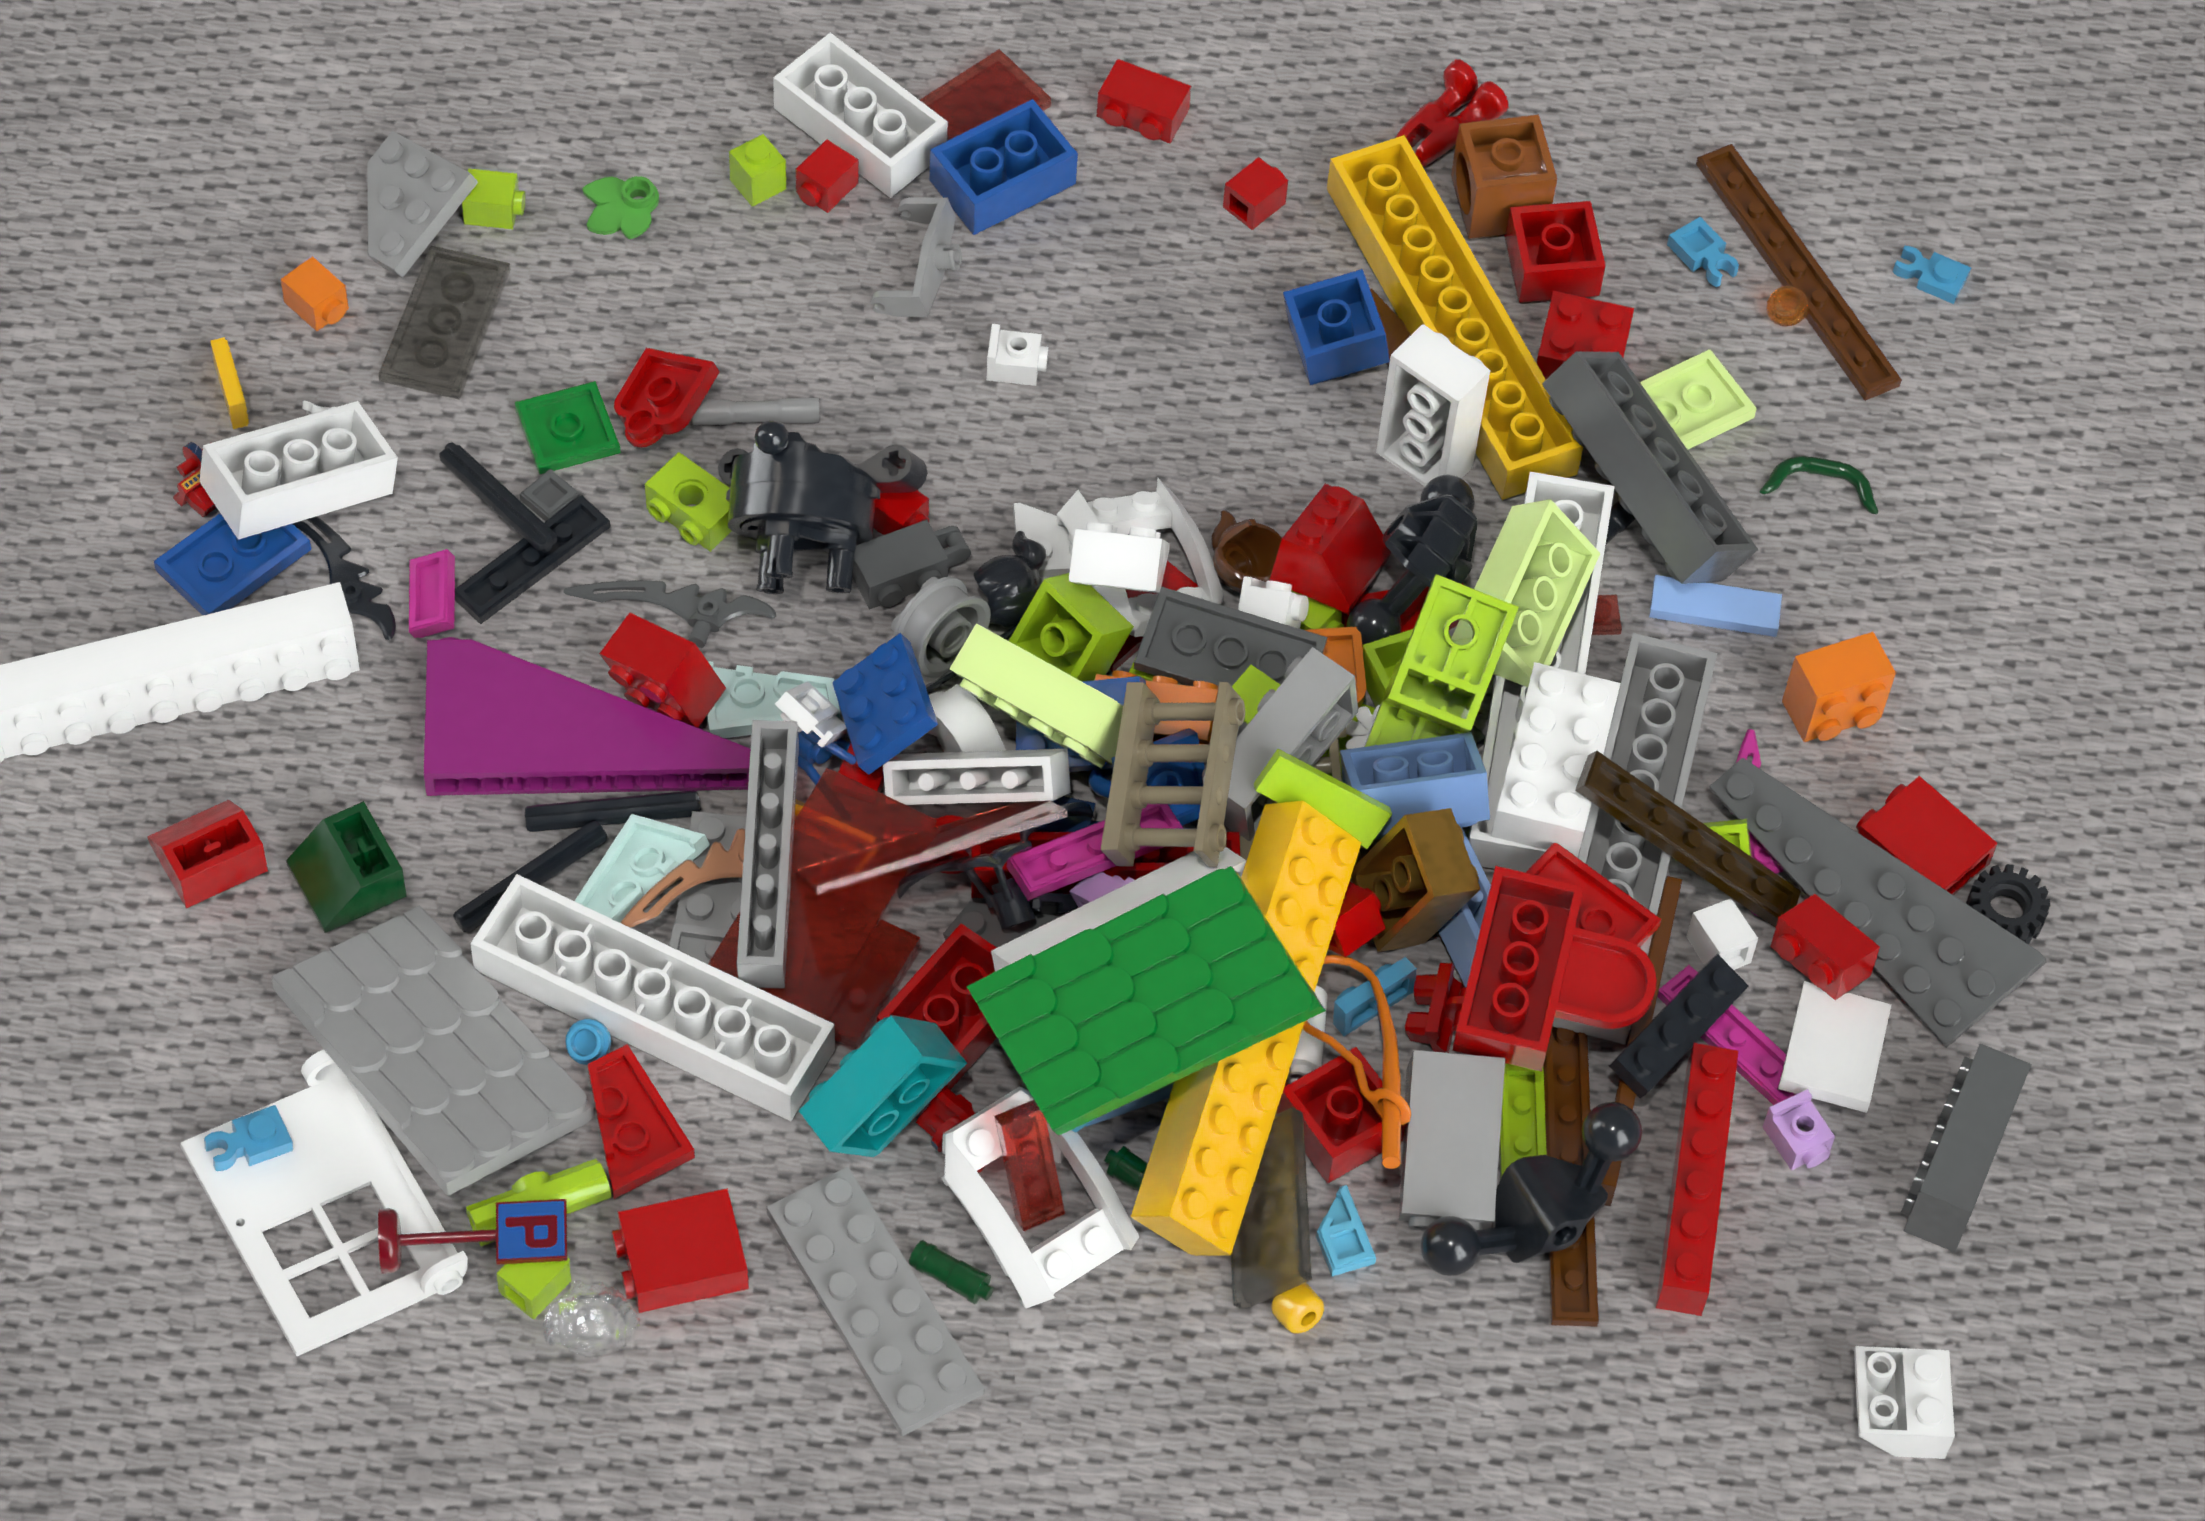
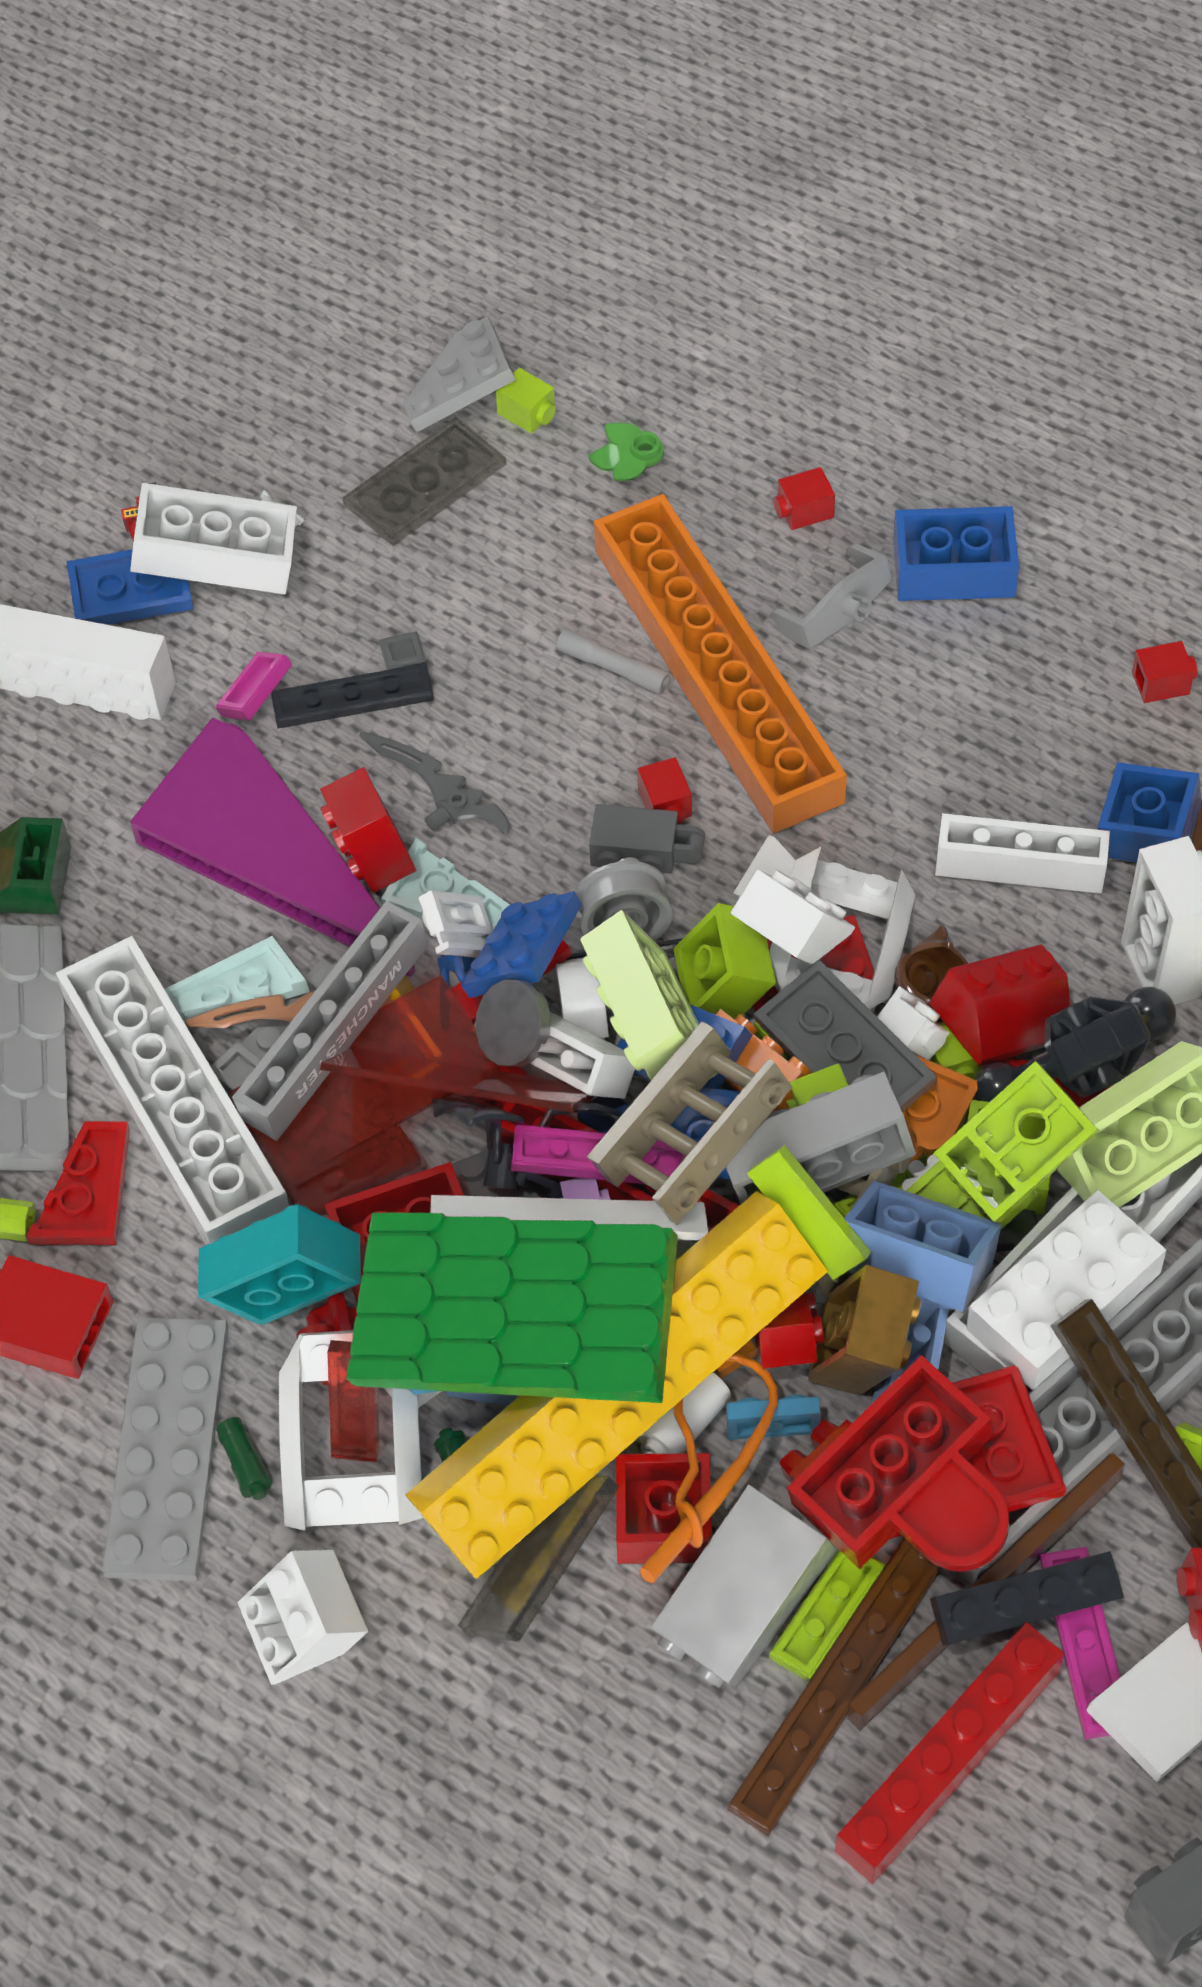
camera: 40 degrees right, 0 degrees up
(229, 383) = (224, 453): yellow tile -> none
(315, 294) = (338, 414): orange brick -> none
(356, 592) = (196, 653): black piece -> none
(498, 497) = (357, 634): black axle -> none
(537, 870) = (179, 944): black axle -> none
(567, 427) = (456, 605): green tile -> none
(588, 1041) = (101, 1102): dark azure plate -> none
(611, 810) = (263, 926): black axle -> none
(662, 395) = (543, 613): red plate -> none
(686, 483) = (506, 710): lime brick -> none
(757, 170) = (751, 468): lime brick -> none
(809, 500) = (581, 747): black piece -> none
(859, 365) = (720, 664): none -> orange brick
(860, 109) = (864, 458): white brick -> none
(934, 774) = (512, 1023): none -> flat silver tile
(984, 93) = (982, 486): clear red tile -> none
(1012, 580) = (705, 888): black hair -> none
(1015, 356) = (856, 713): white brick -> none
(1101, 1368) = (302, 1614): none -> white slope
(1143, 101) = (1118, 553): red brick -> none
(1249, 413) = (1022, 853): none -> white brick
(1298, 1308) = (509, 1661): yellow piece -> none
(1344, 1237) = (597, 1619): medium azure tile -> none
(1539, 1199) = (784, 1691): black piece -> none
(1724, 932) = (1133, 1537): white panel -> none
(1796, 1146) = (1081, 1742): lavender brick -> none

